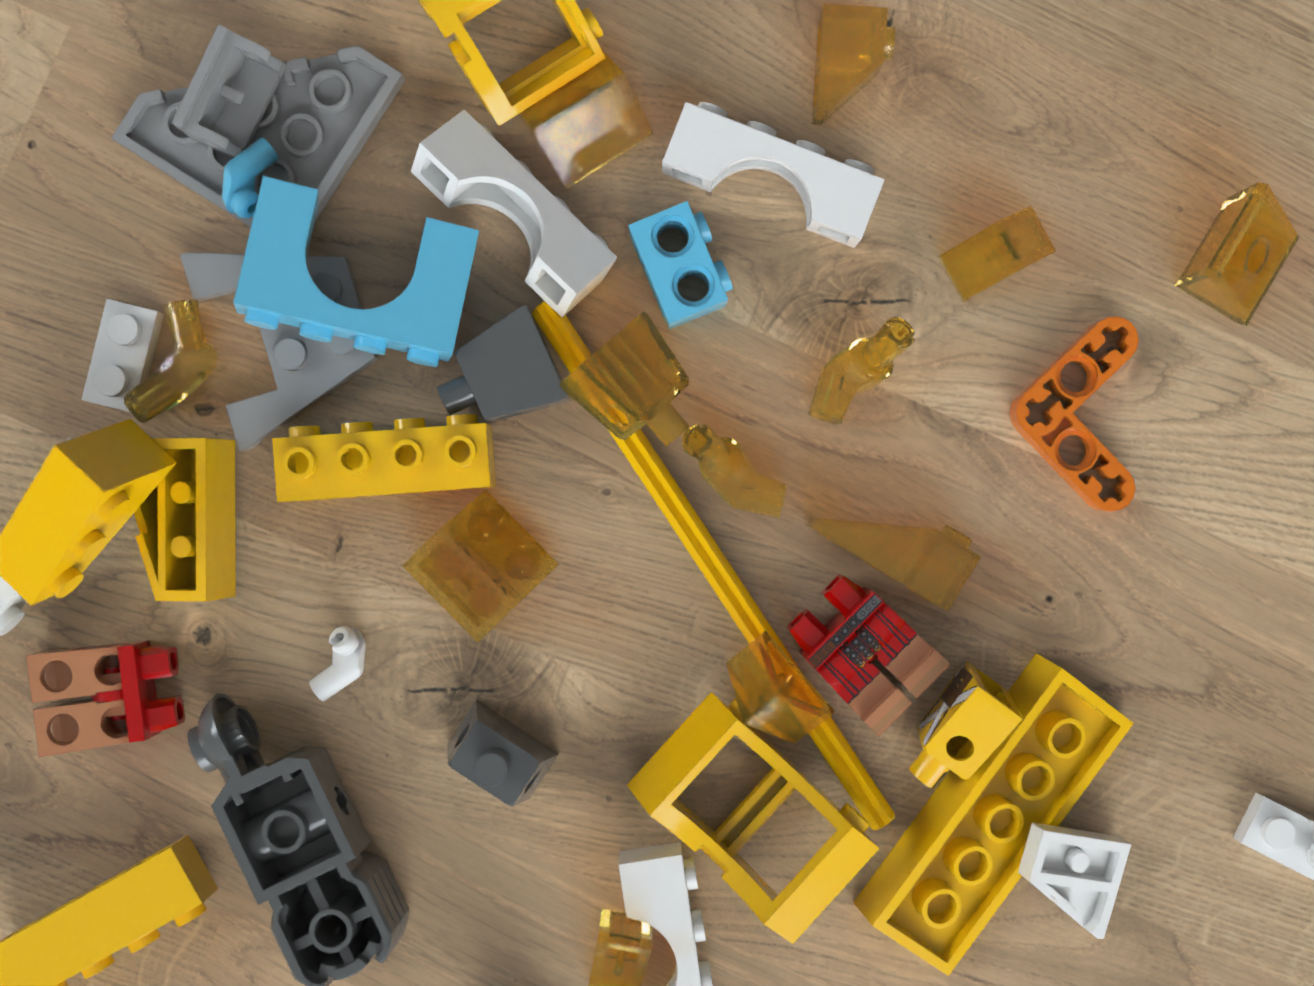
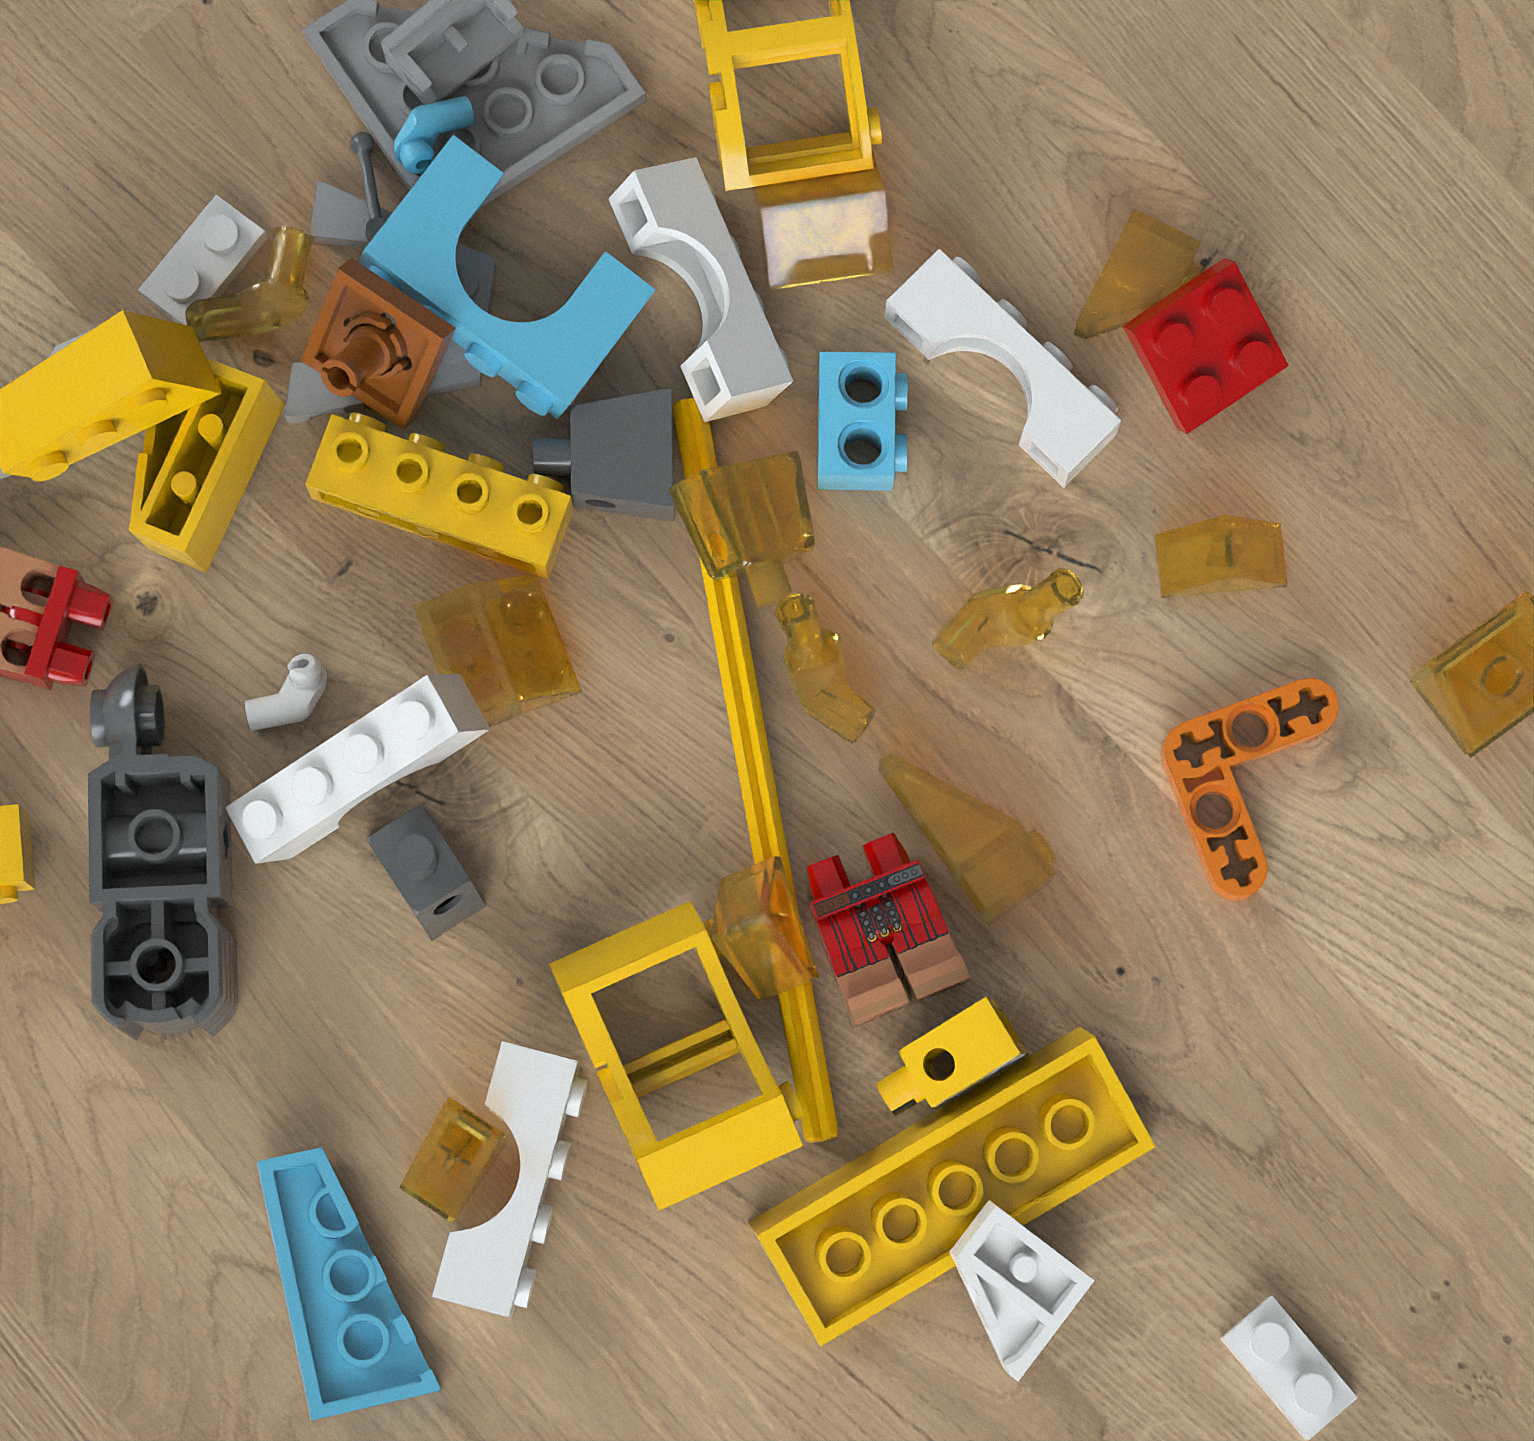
camera: 20 degrees right, 10 degrees down
(203, 210) = (363, 145): none -> dark grey hinge
(280, 380) = (369, 351): none -> dark orange plate
(417, 708) = (388, 743): none -> white arch
(922, 89) = (1205, 345): none -> red plate

